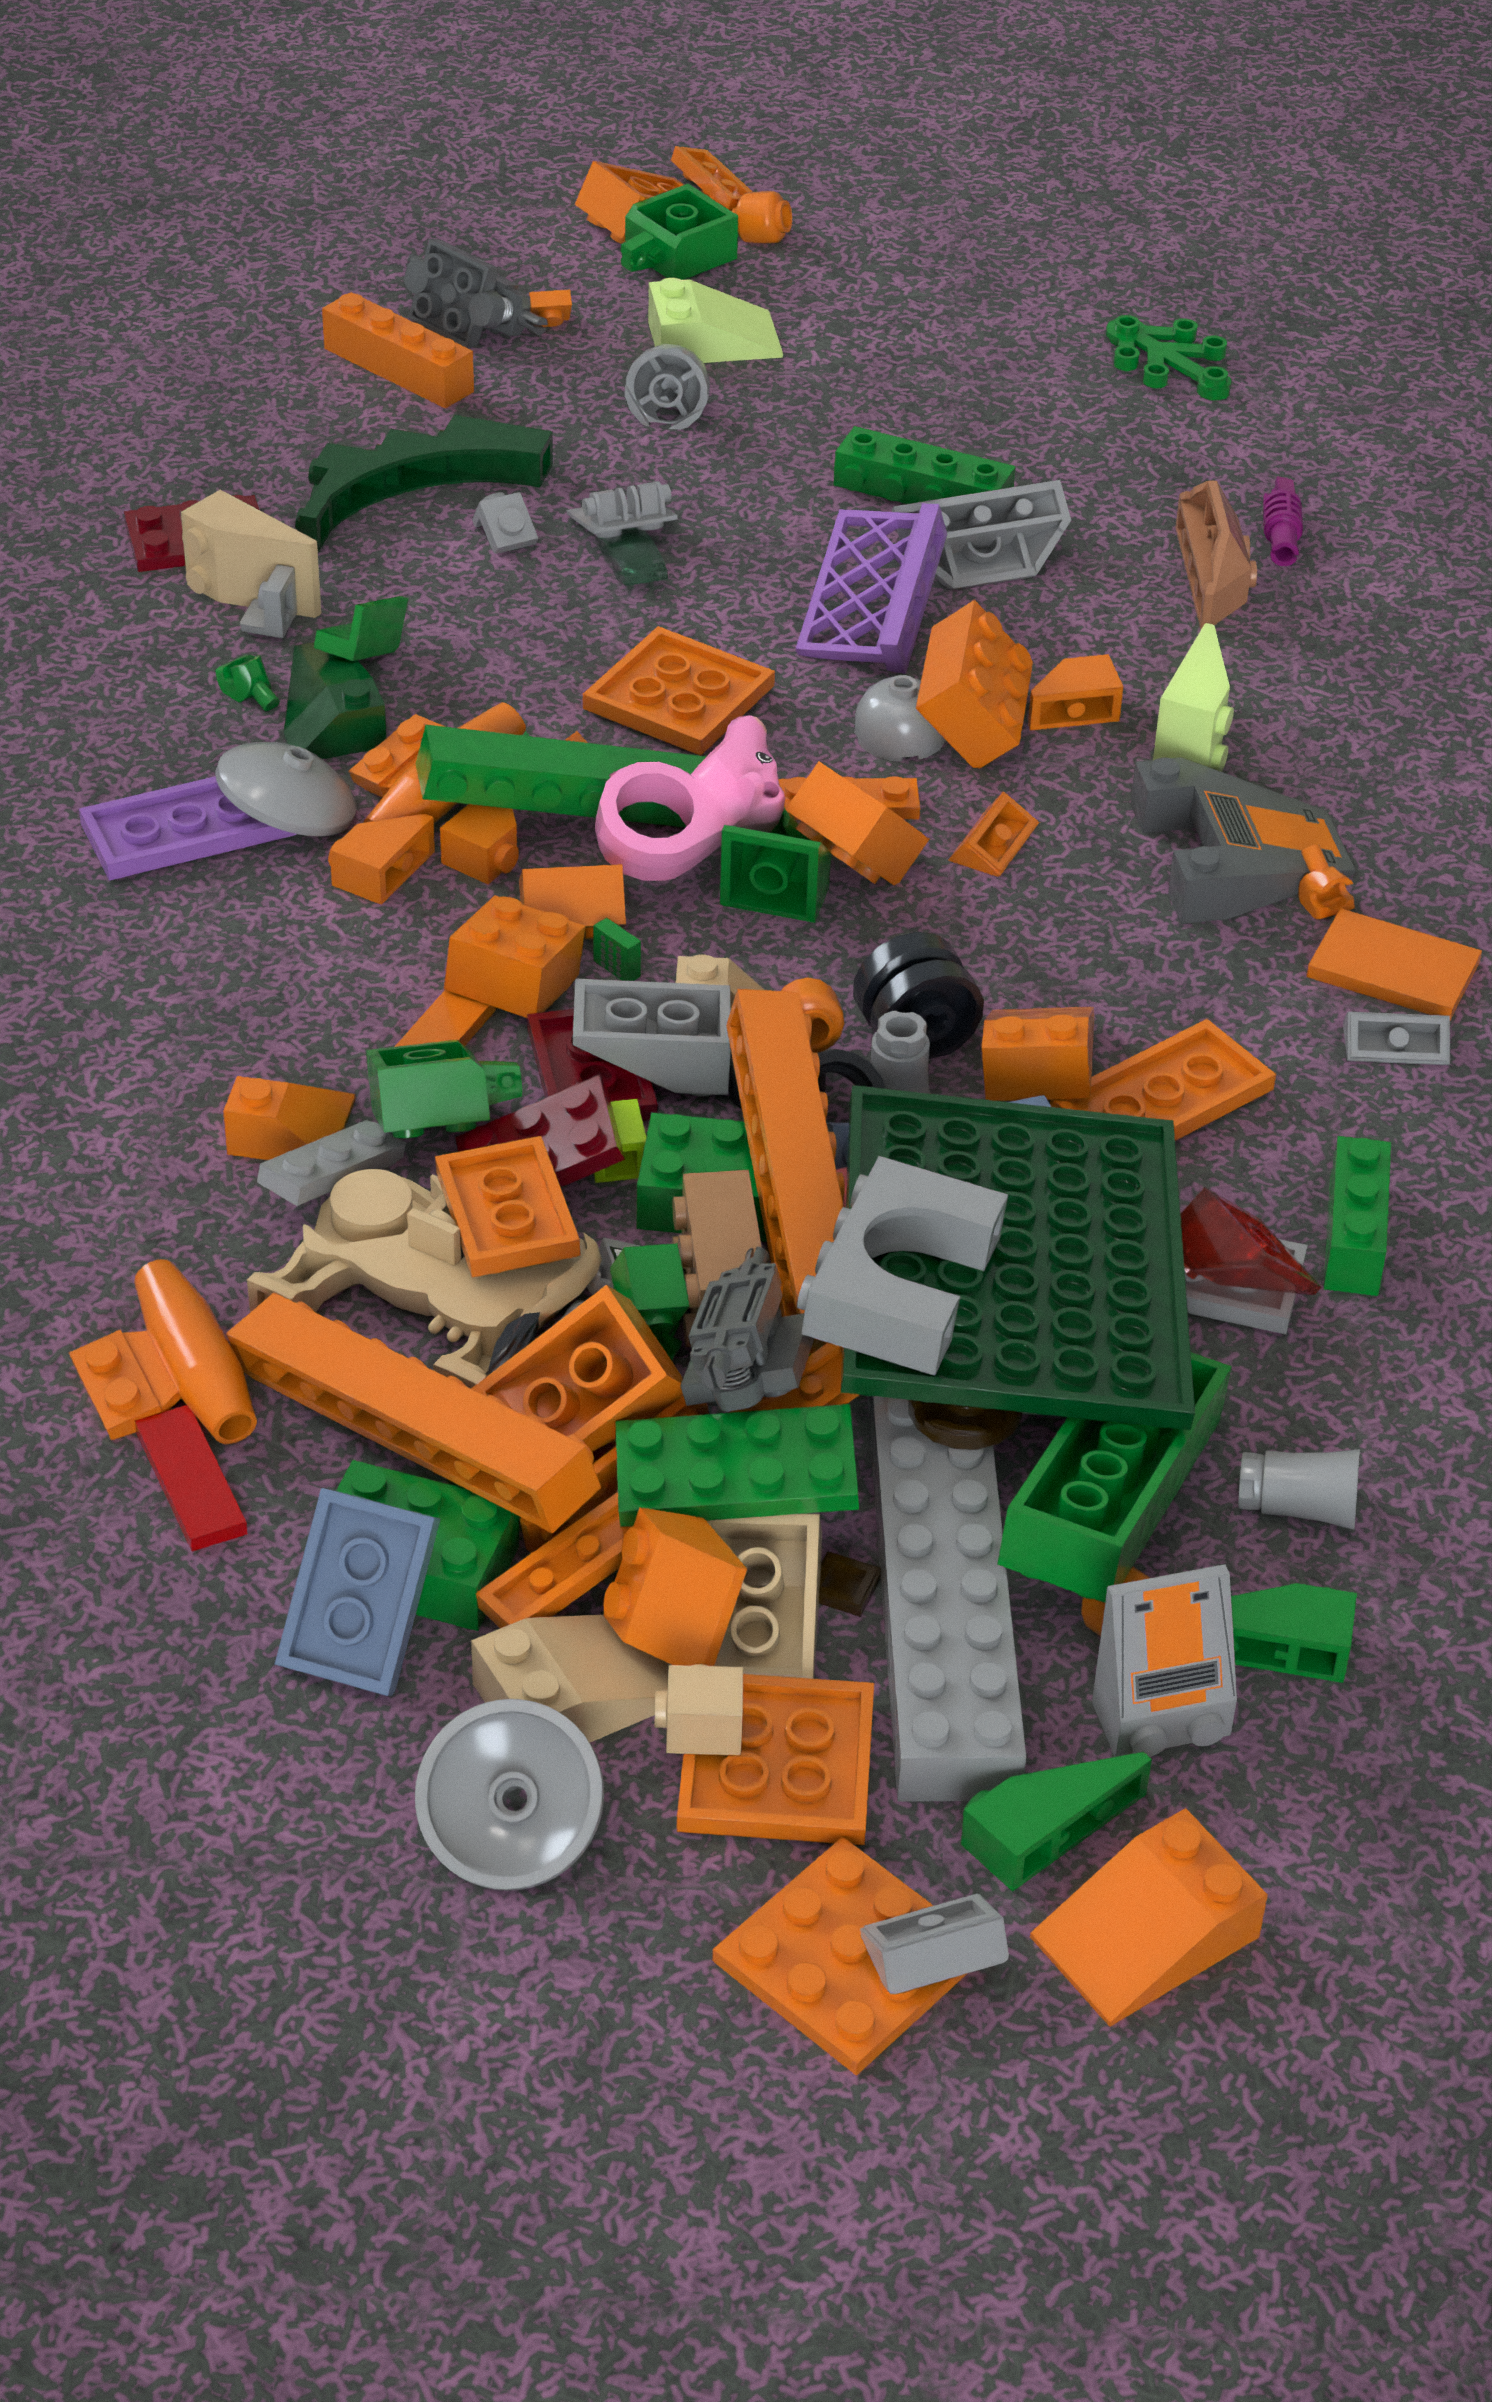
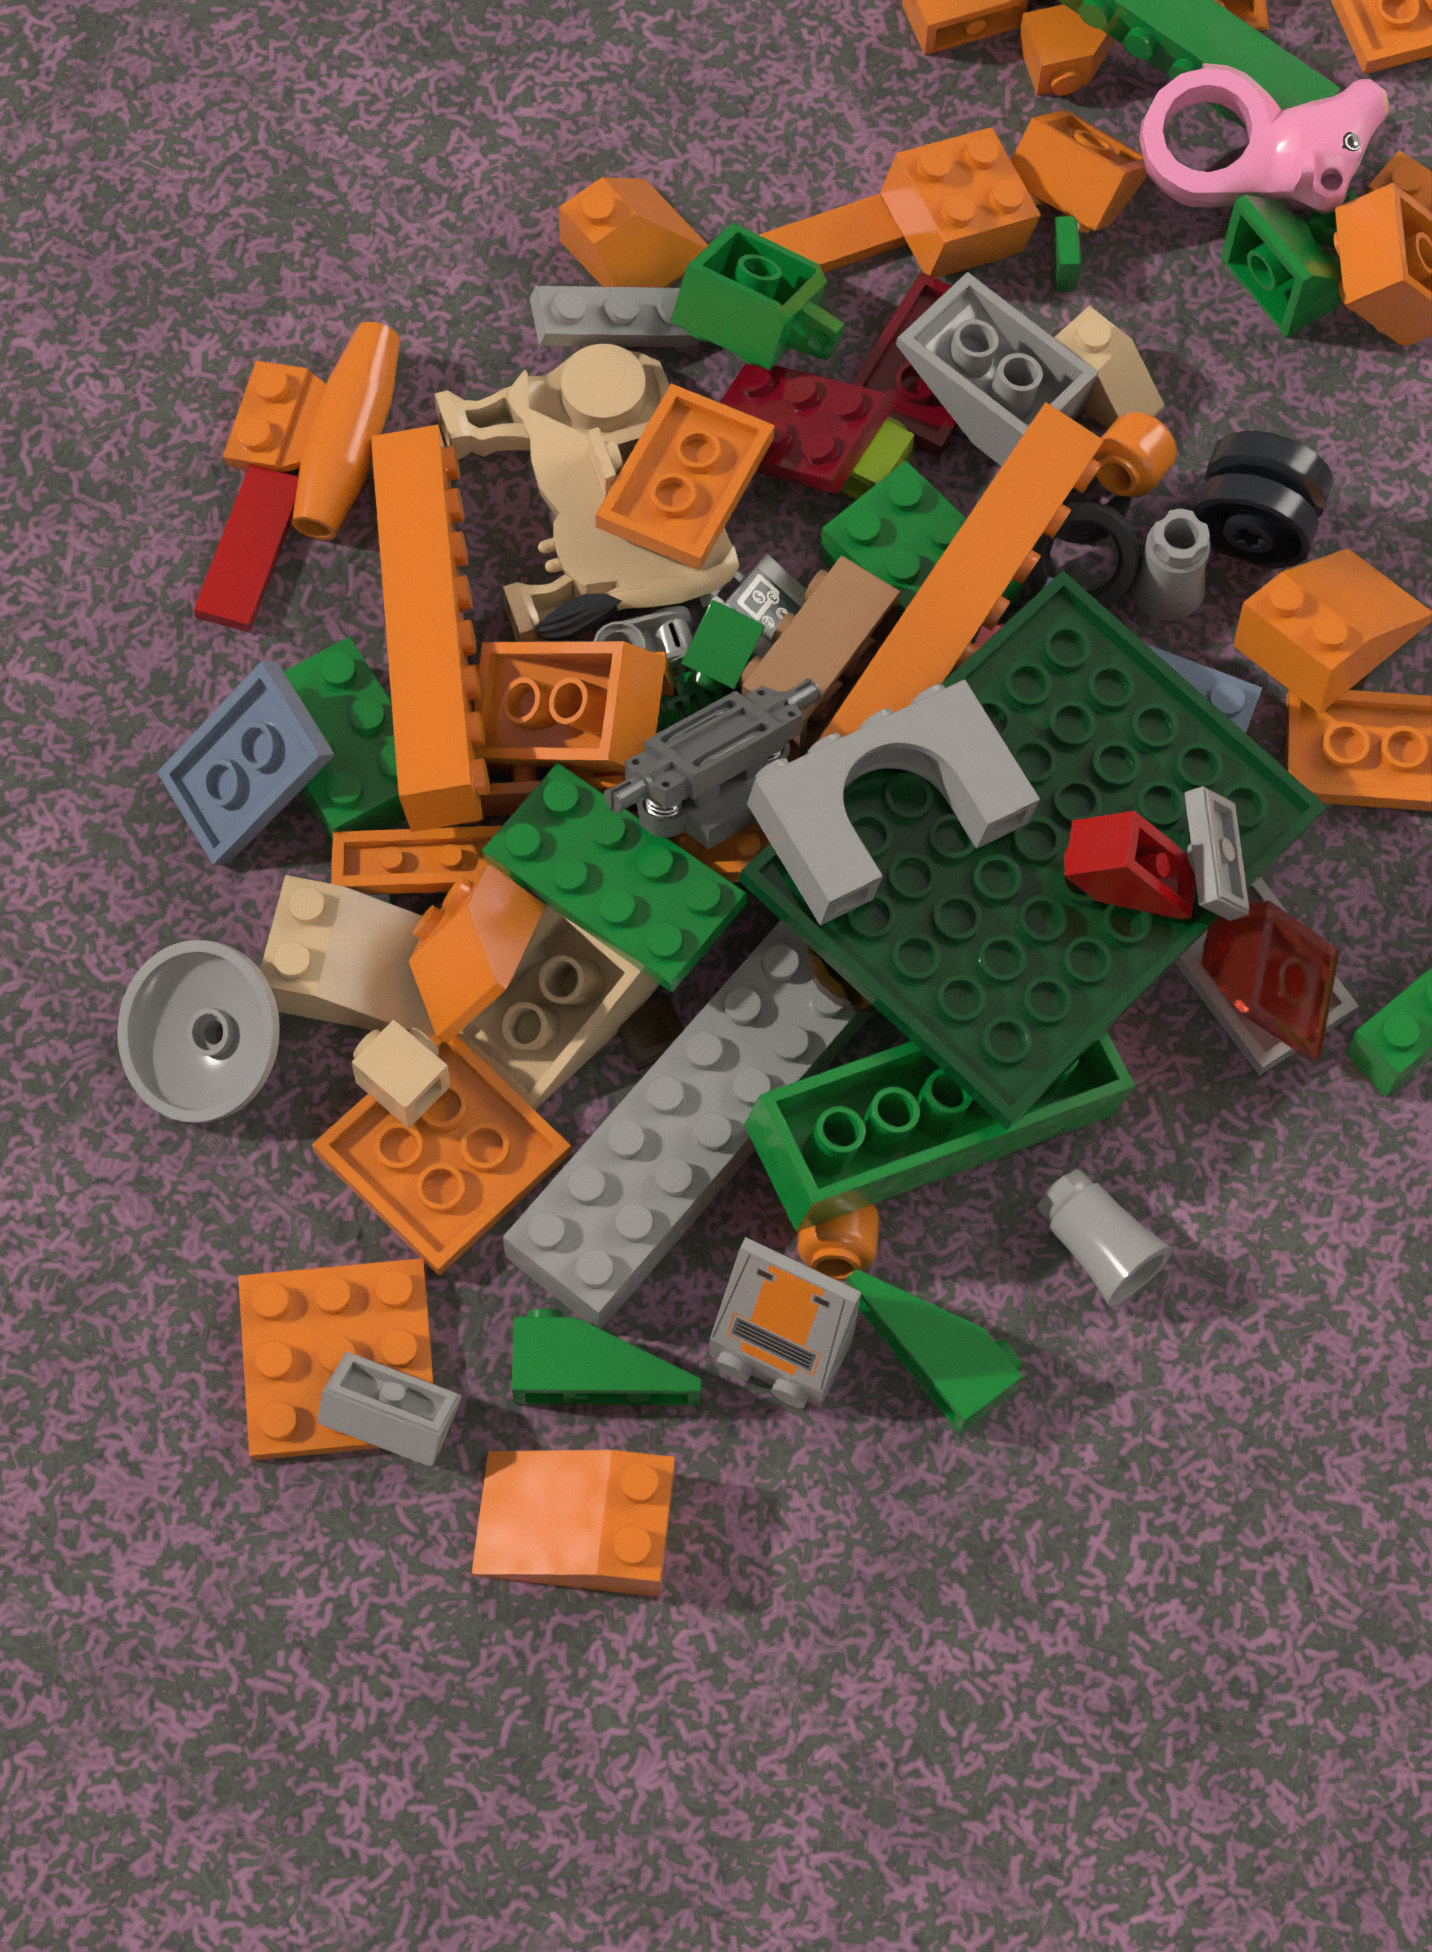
camera: 40 degrees right, 25 degrees up
(1098, 1209) = (1130, 865): none -> red slope
(1144, 1175) = (1216, 853): none -> light grey plate

